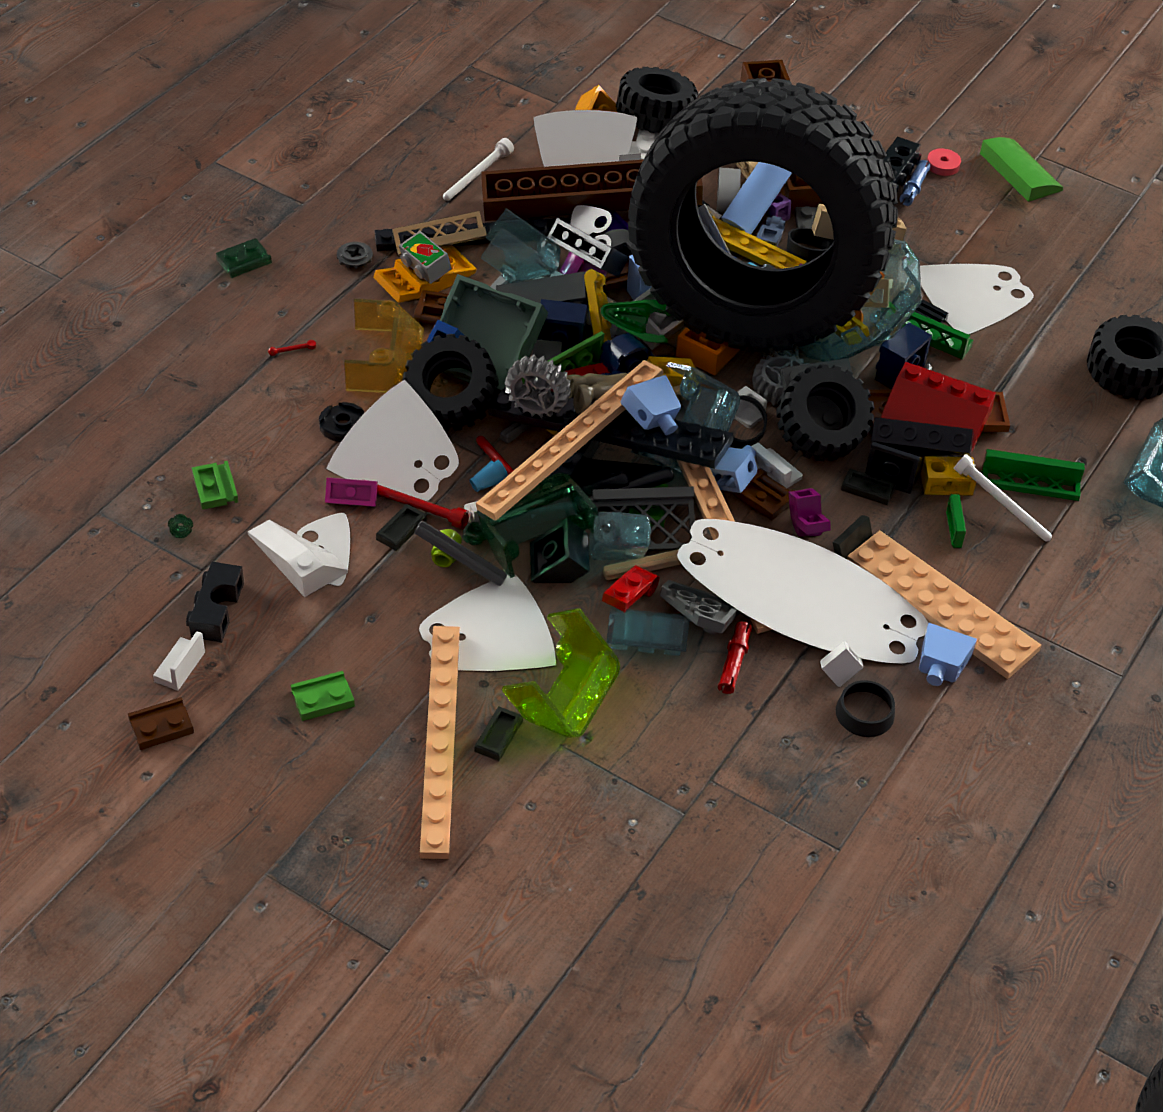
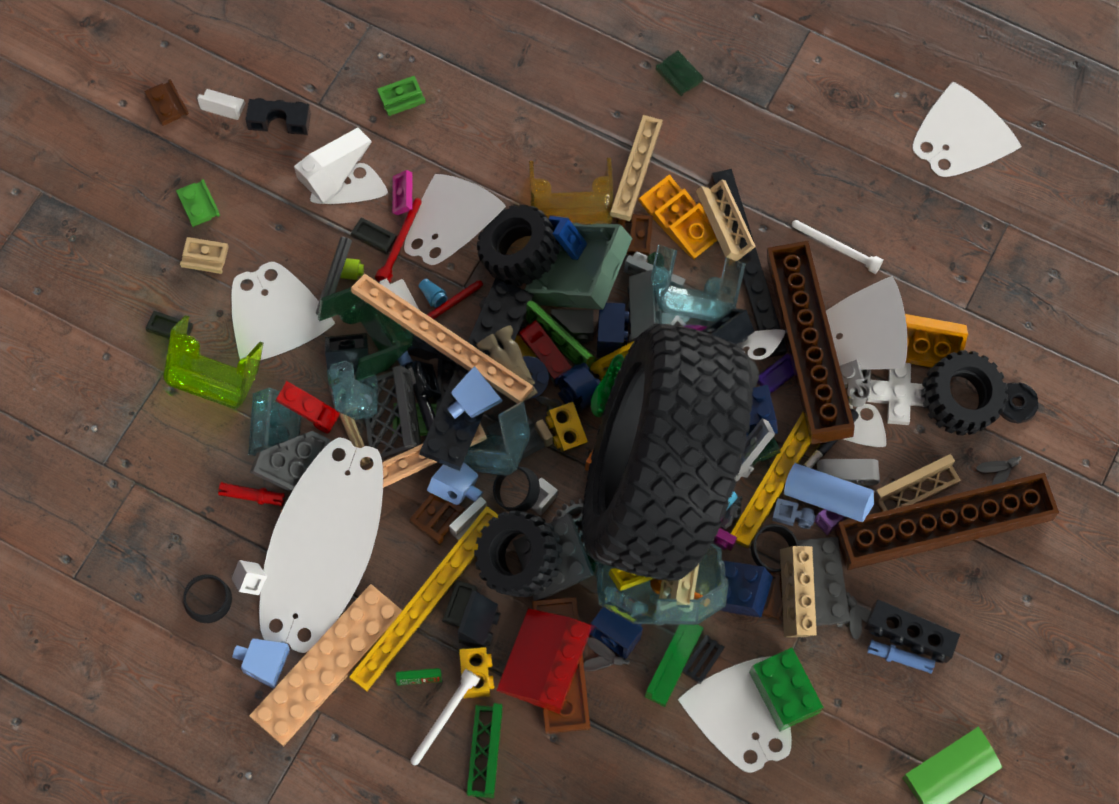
camera: 85 degrees right, 20 degrees up
(177, 530) = (355, 80): clear green plate -> none
(311, 344) = (578, 141): red hinge -> none
(331, 415) = (490, 167): black tile -> none
(346, 254) = (690, 152): dark grey gear -> none
(348, 290) = (636, 168): none -> tan plate
(359, 75) = (969, 128): none -> white piece
(403, 688) = (204, 255): none -> tan plate
(424, 257) = (679, 207): brick -> none
(440, 744) = (161, 287): light nougat plate -> none
(539, 380) = (494, 304): light grey gear -> none
(807, 513) = (409, 549): magenta brick -> none
(853, 537) = (387, 586): pearl dark grey tile -> none
(860, 503) = (421, 604): none -> yellow plate
(923, 437) = (503, 643): black brick -> none
(944, 162) = (956, 686): coral piece -> none
(954, 254) = (786, 689): none -> green brick

